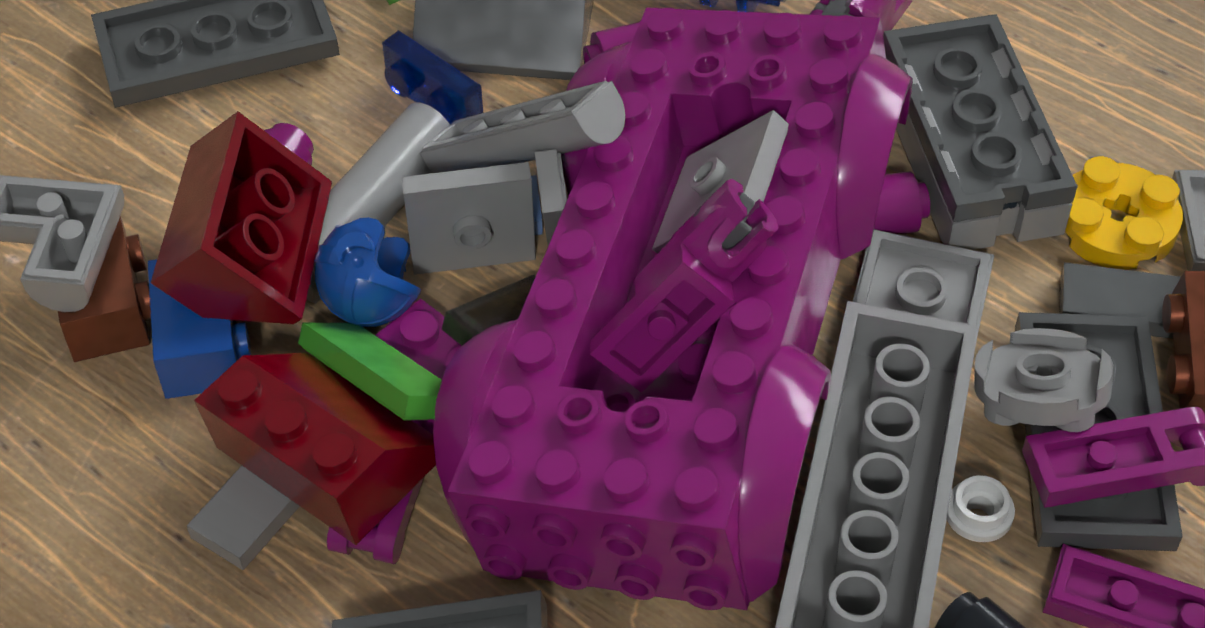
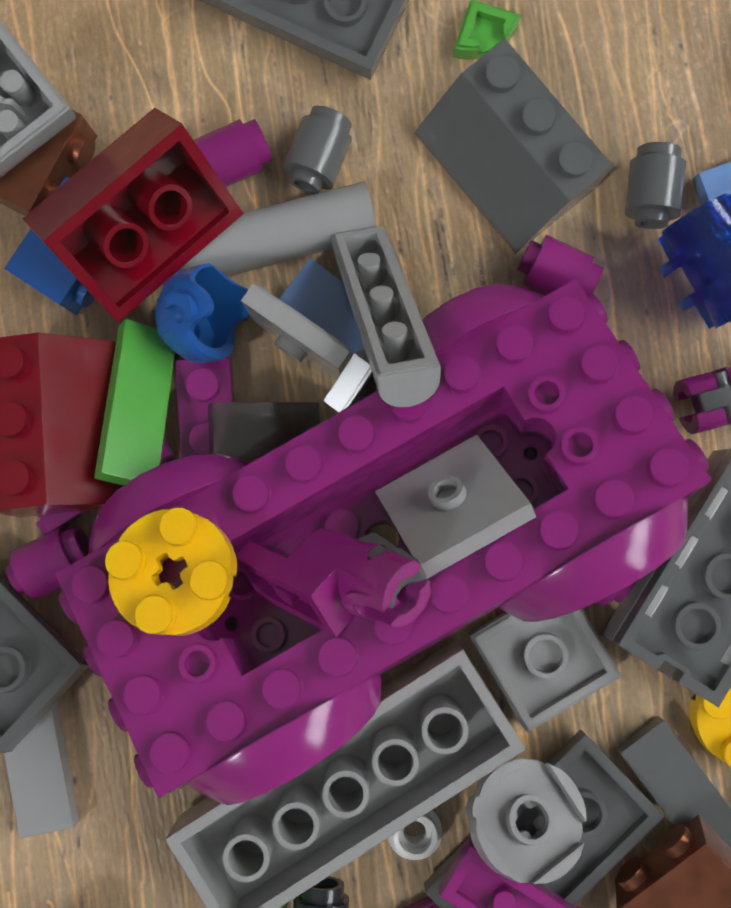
camera: 45 degrees right, 35 degrees up
(346, 114) = (318, 150): none -> dark grey brick
(420, 562) = (37, 561): none -> magenta brick
(429, 79) = (395, 152): clear blue plate -> none
(545, 344) = (138, 561): none -> yellow plate

